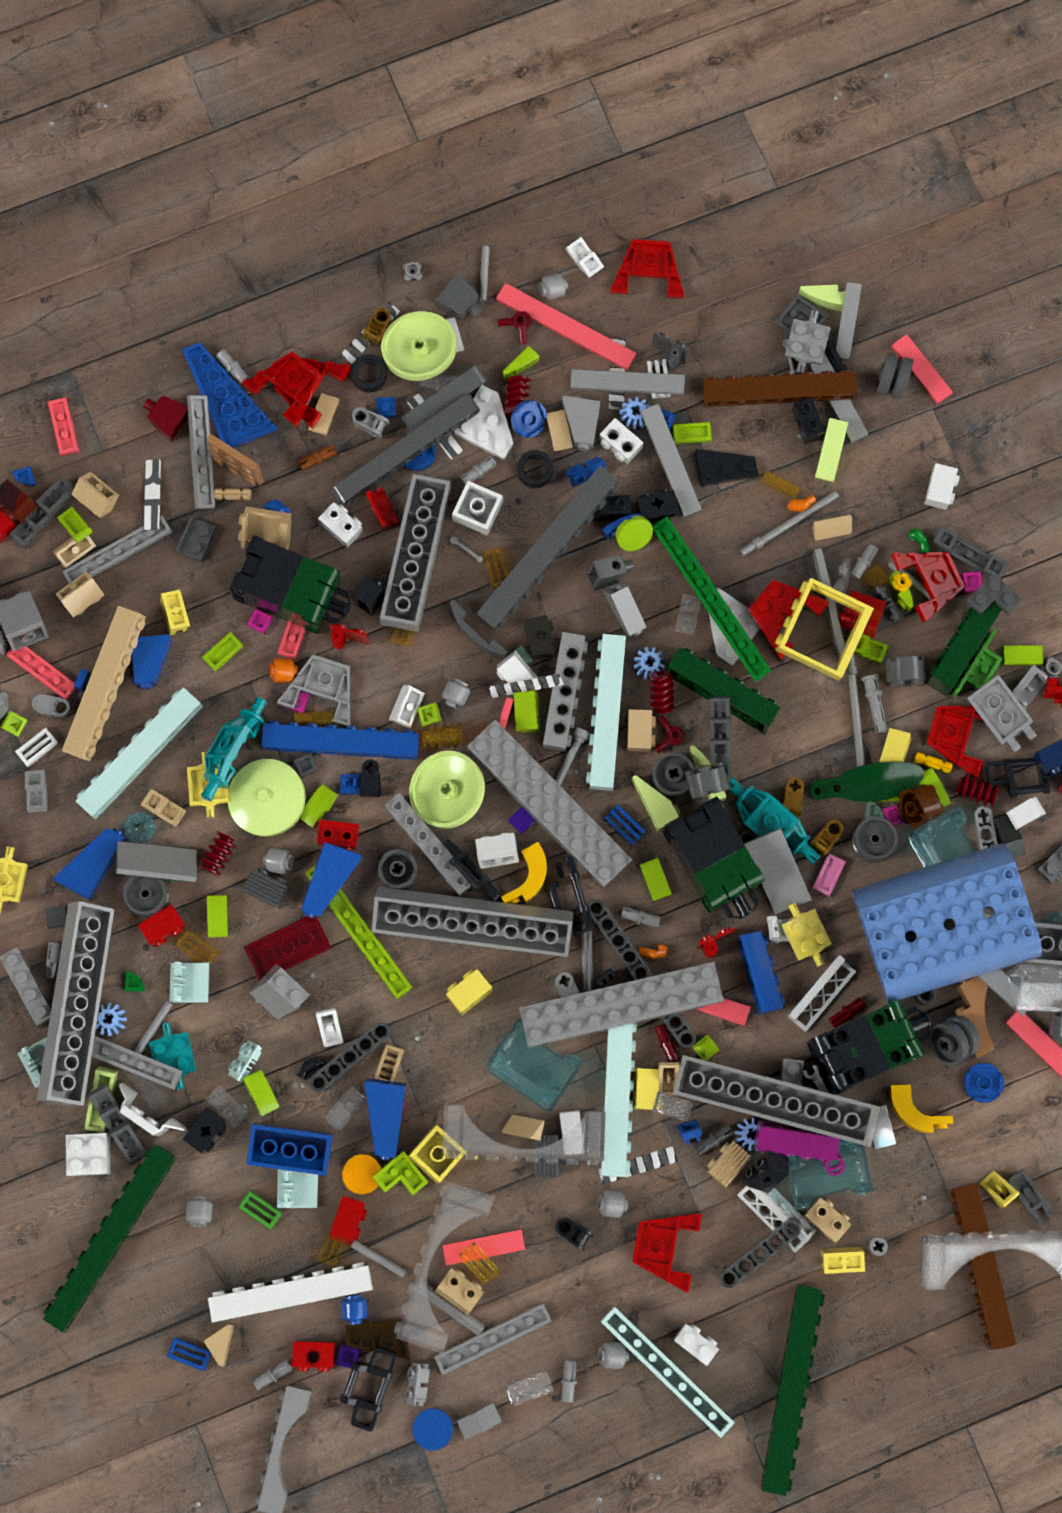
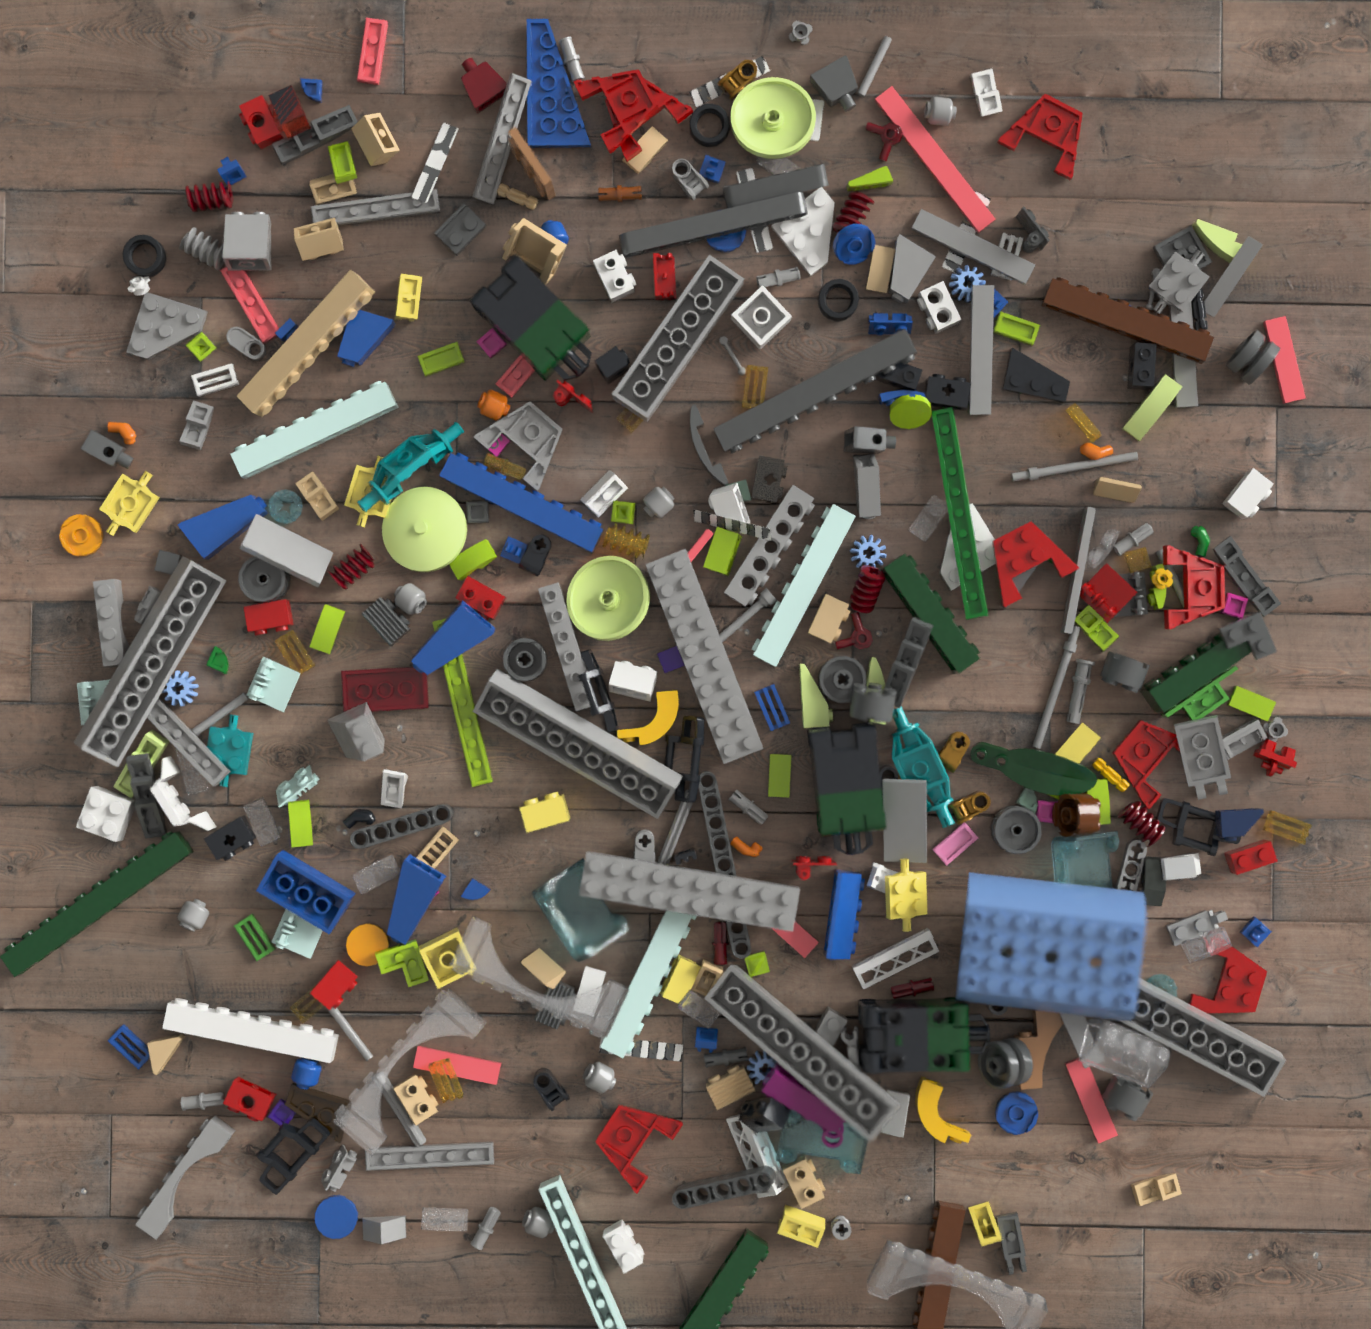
camera: 25 degrees right, 10 degrees up
(436, 1087) = (475, 890): none -> blue tile
(865, 613) = (1085, 618): light yellow window -> none

